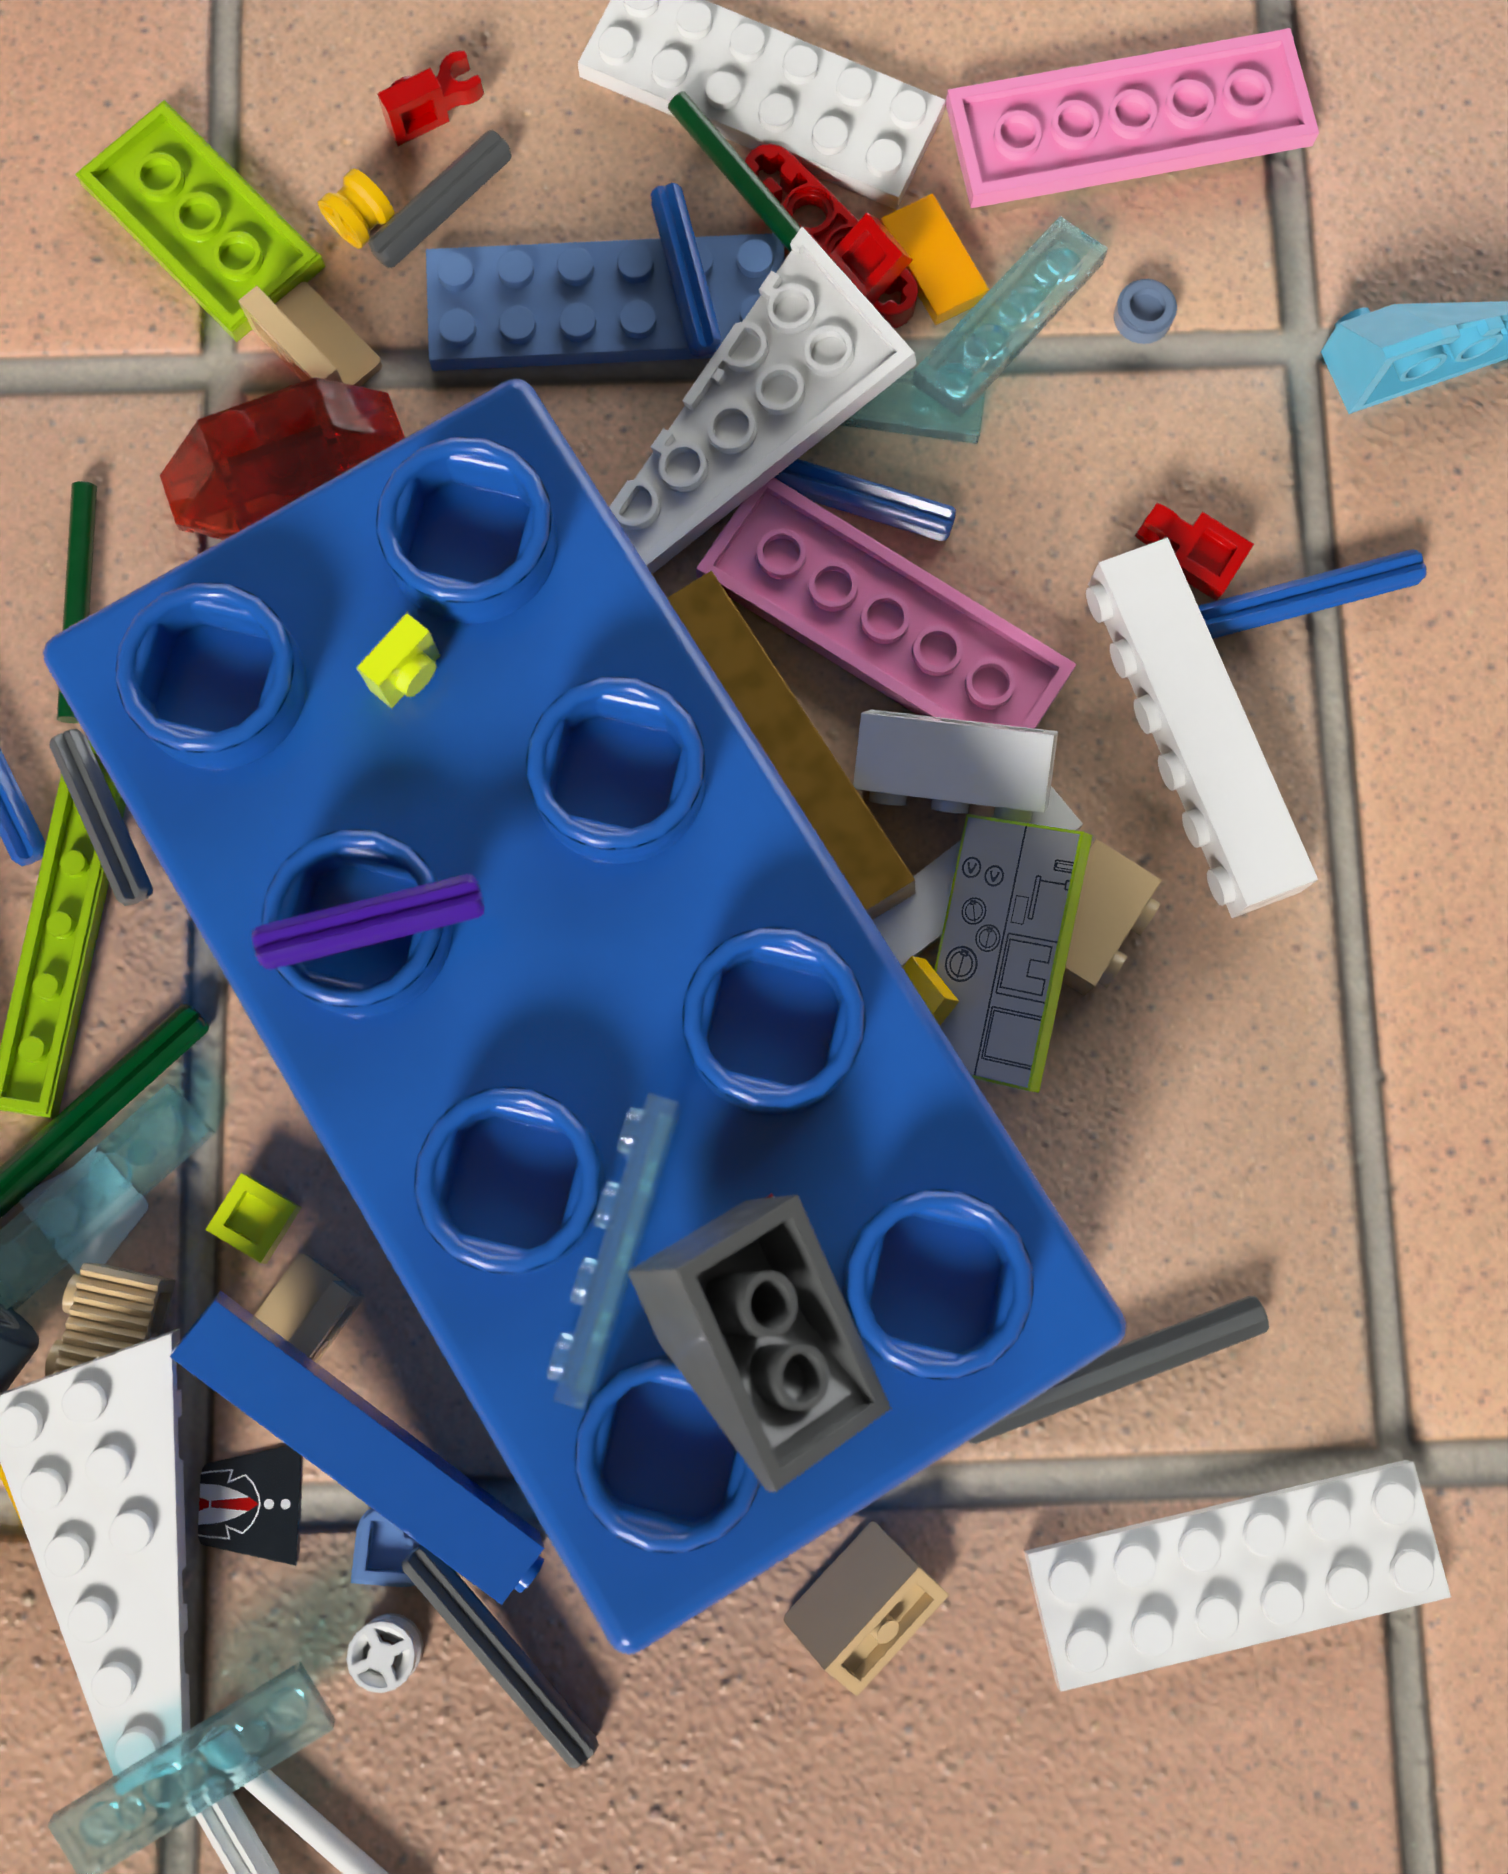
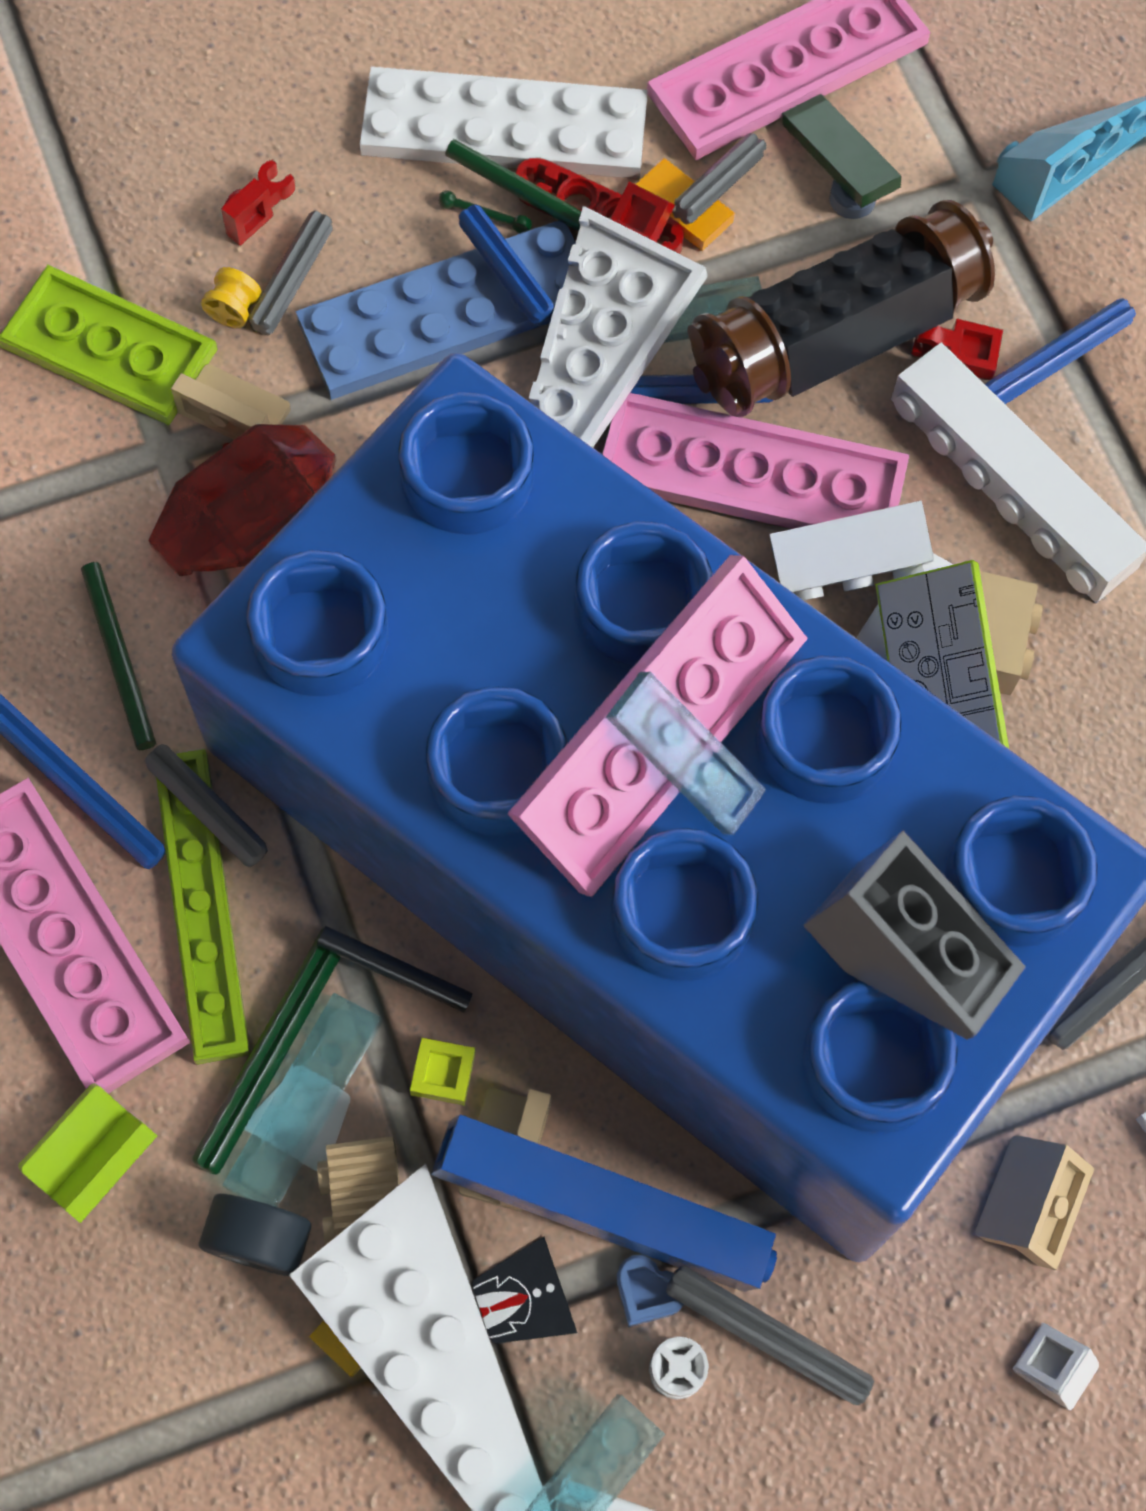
camera: 20 degrees left, 10 degrees down
(241, 1079) = (394, 969): none -> black bar
(368, 921) = (514, 746): dark purple axle -> none
(400, 662) = (456, 568): neon yellow plate -> none
(561, 949) = (600, 786): none -> bright pink plate
(575, 998) = (686, 752): none -> clear light blue tile
(604, 1281) = (782, 950): clear light blue plate -> none
(658, 166) = (519, 223): none -> dark green hinge
(813, 1803) = (1057, 1365): none -> white slope
(984, 241) = (719, 178): none -> dark grey axle
(1009, 316) = (759, 224): clear light blue plate -> none
(1065, 458) = (843, 309): none -> brick
(1149, 252) = (841, 150): none -> tile

